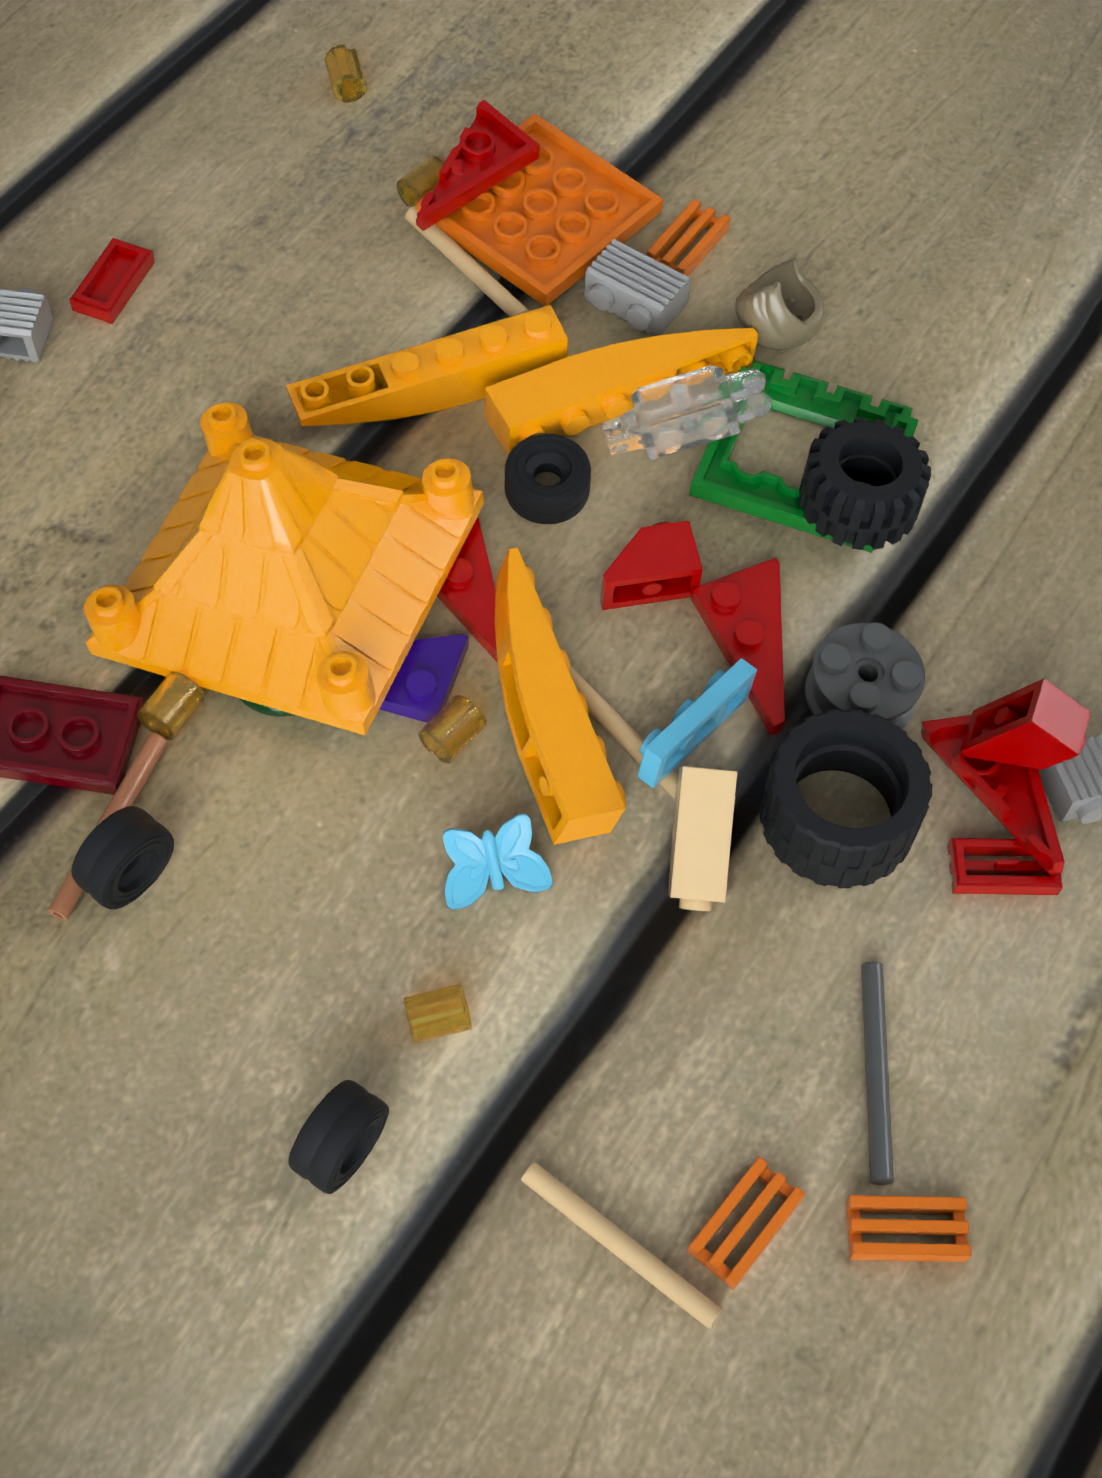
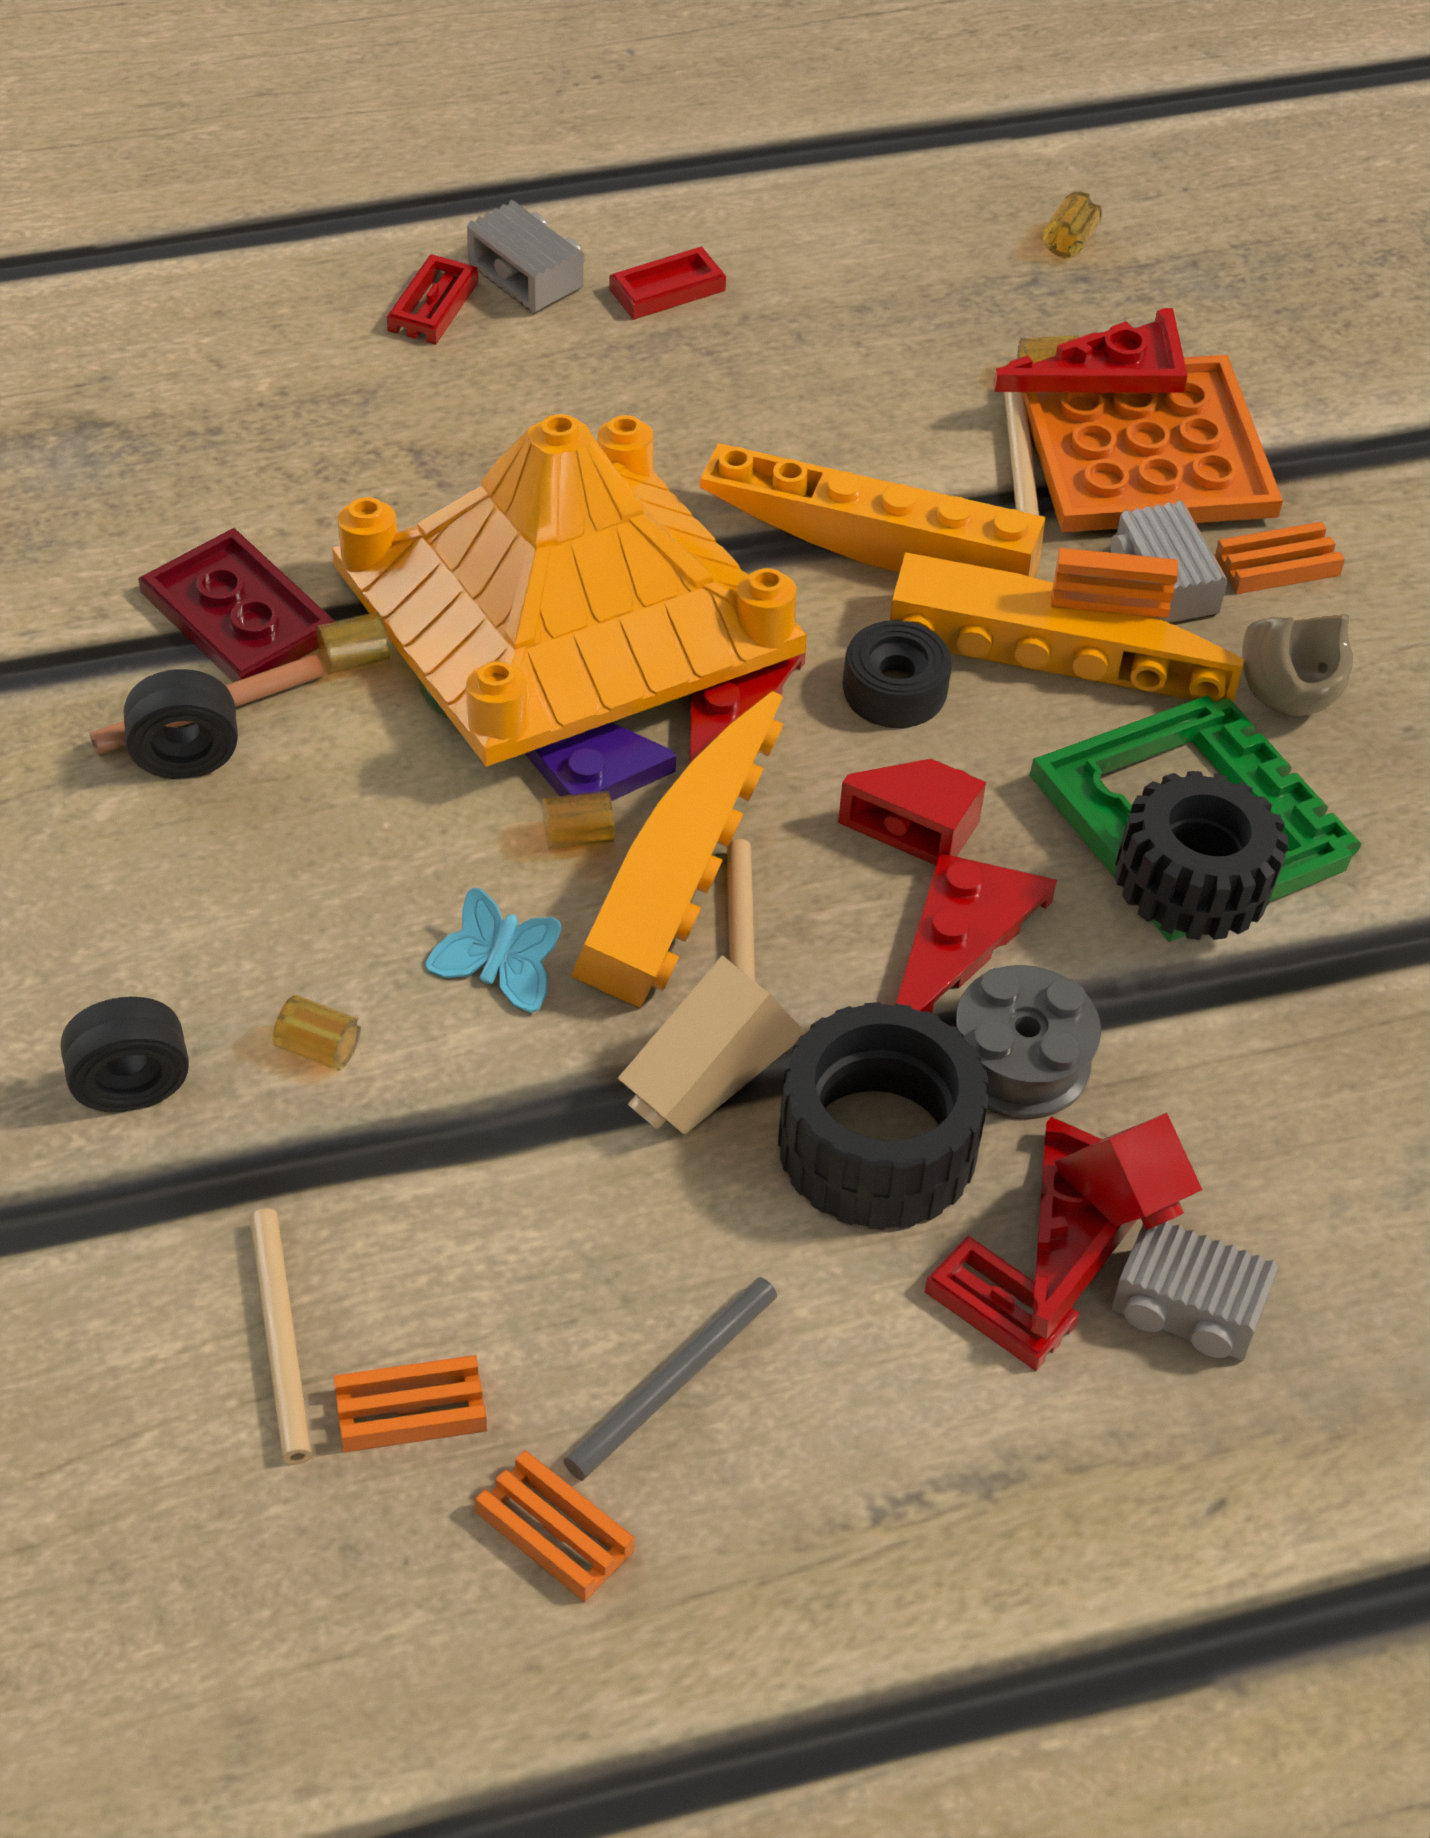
camera: 40 degrees right, 10 degrees down
(643, 325) = (1115, 590): none -> orange tile
(688, 411) = (1092, 693): clear hinge -> none
(695, 722) = (818, 957): medium azure plate -> none

